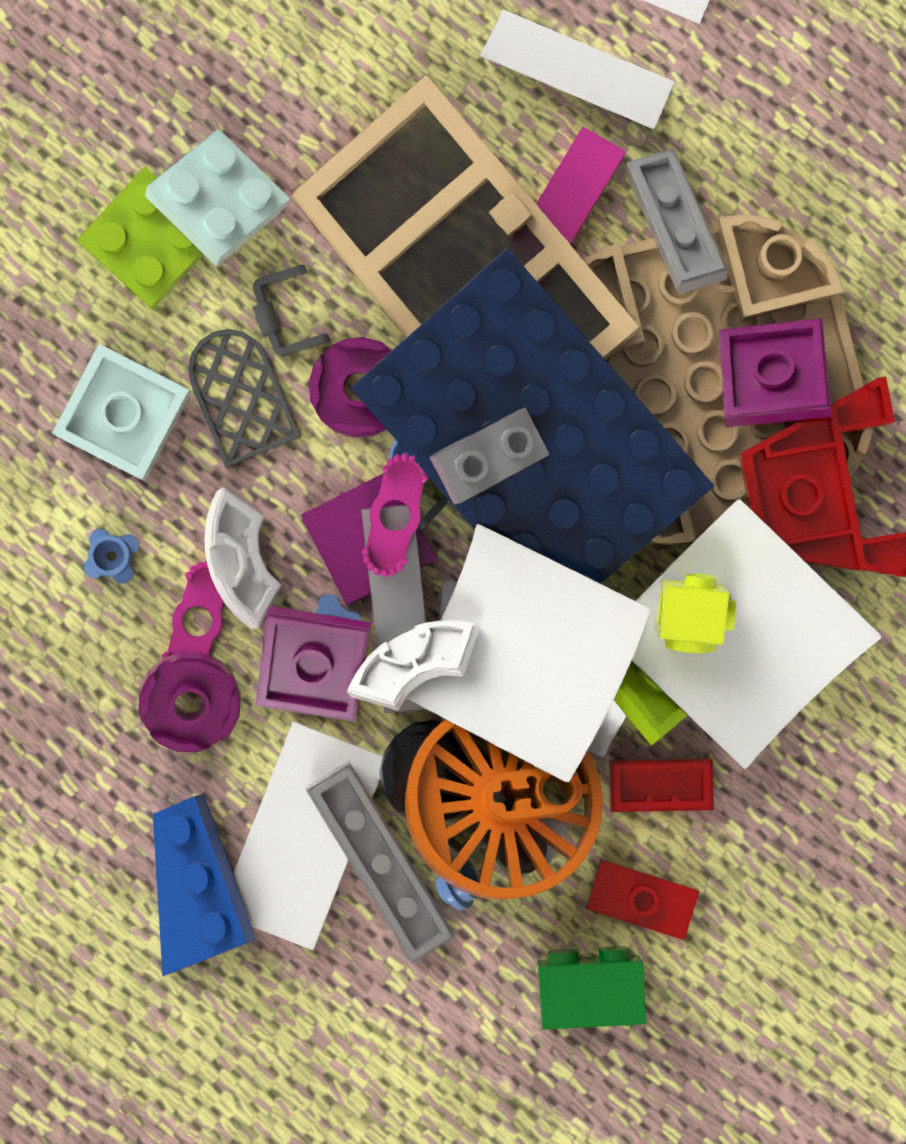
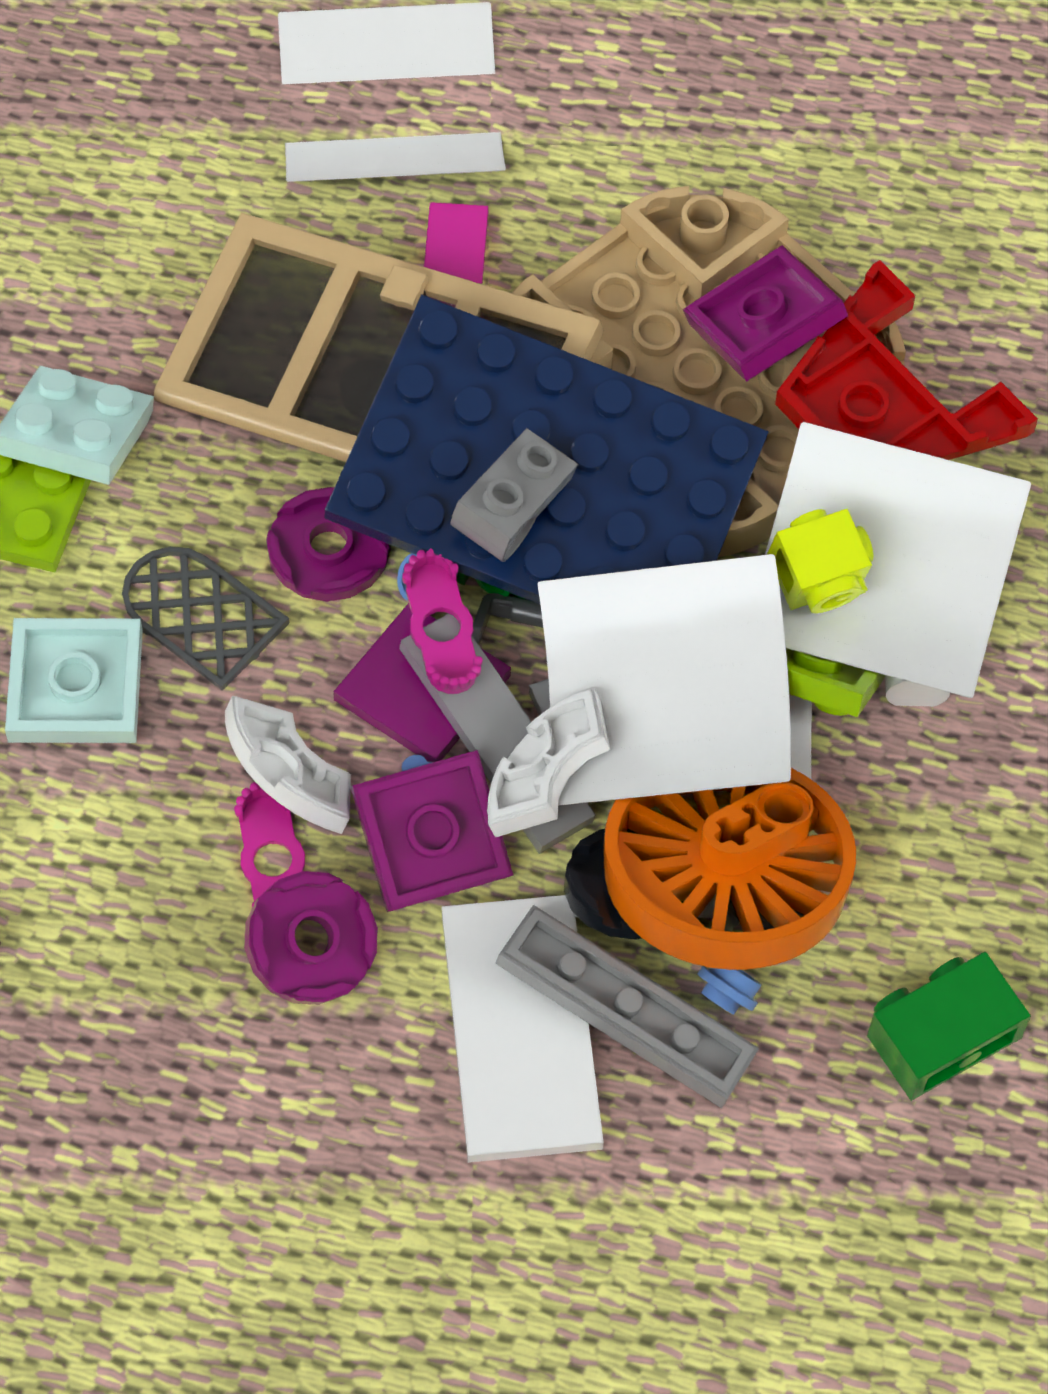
camera: 30 degrees left, 25 degrees down
(101, 545) = (137, 817): medium blue plate -> none
(195, 888) = (429, 1141): blue wing -> none
(267, 317) = (191, 524): dark grey piece -> none
(642, 899) = (945, 909): red plate -> none
(661, 785) = (893, 778): red plate -> none
(676, 221) = (579, 236): light grey tile -> none

